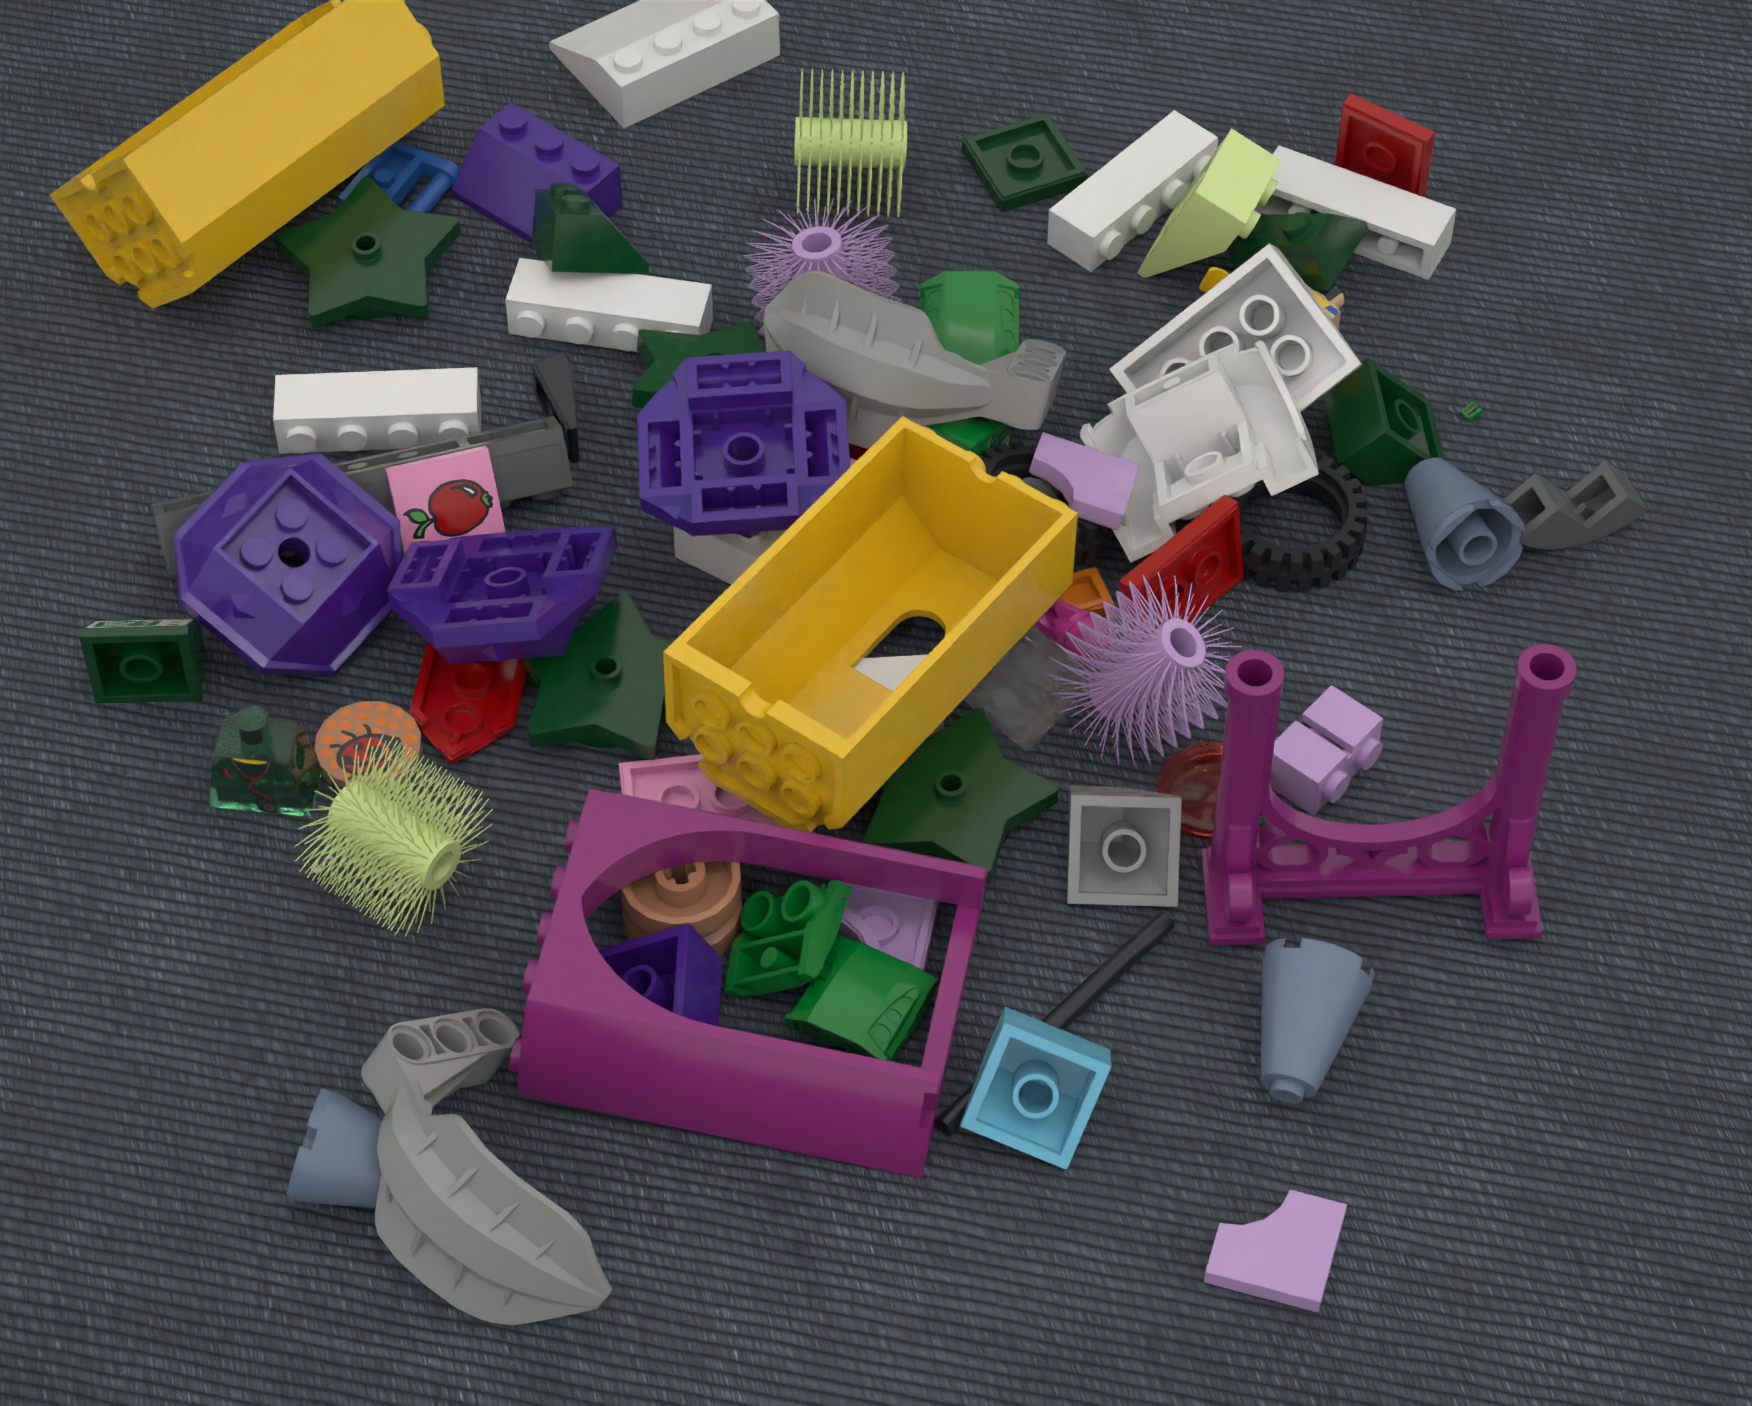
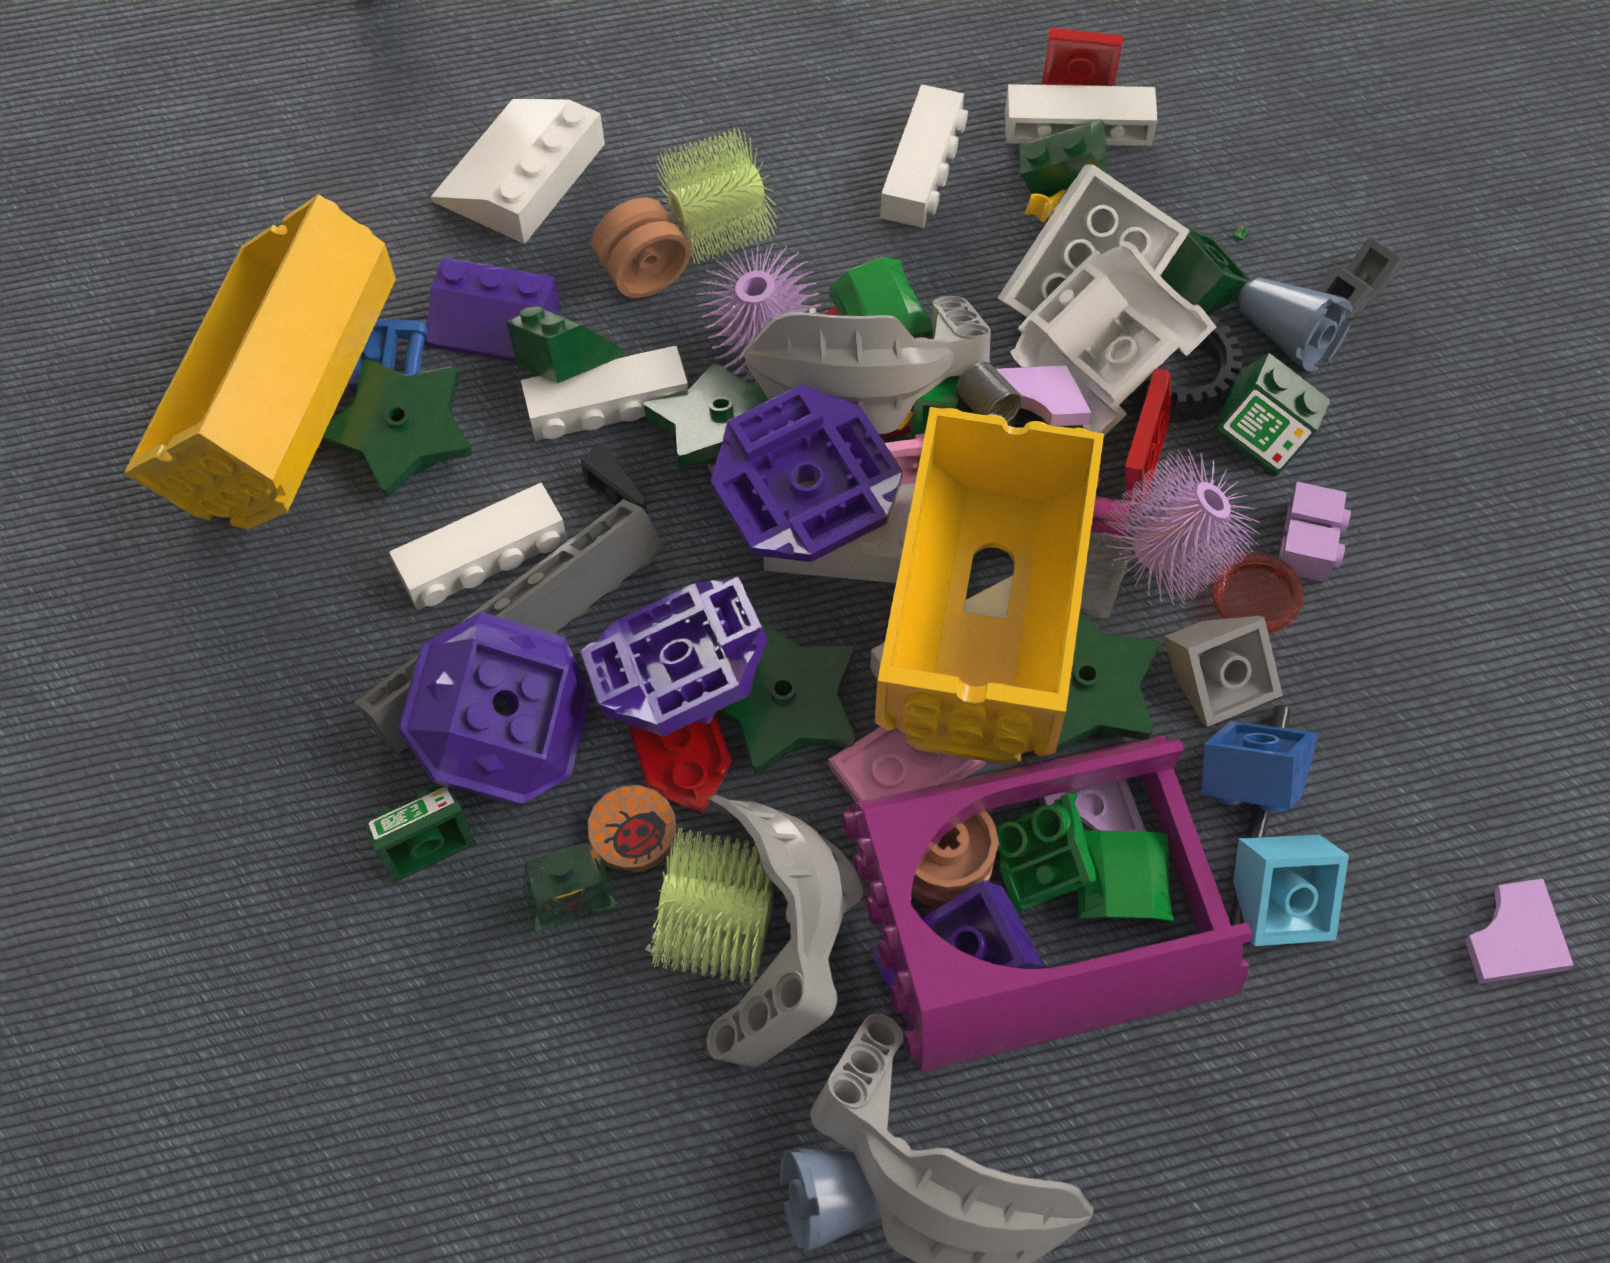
camera: 25 degrees left, 10 degrees up
(445, 497) = (583, 602): bright pink tile -> none
(497, 851) = (798, 985): none -> light grey piece
(735, 170) = (640, 247): none -> nougat wheel
(1011, 445) = (988, 391): none -> dark grey piece
(1024, 162) = (829, 162): dark green tile -> none
(1083, 951) = (1257, 765): none -> blue slope
(1215, 206) = (1000, 150): yellowish green slope -> none
(1306, 1013) = (1435, 746): sand blue cone -> none
(1350, 605) = (1270, 414): none -> slope
(1379, 857) = (1481, 566): magenta arch -> none

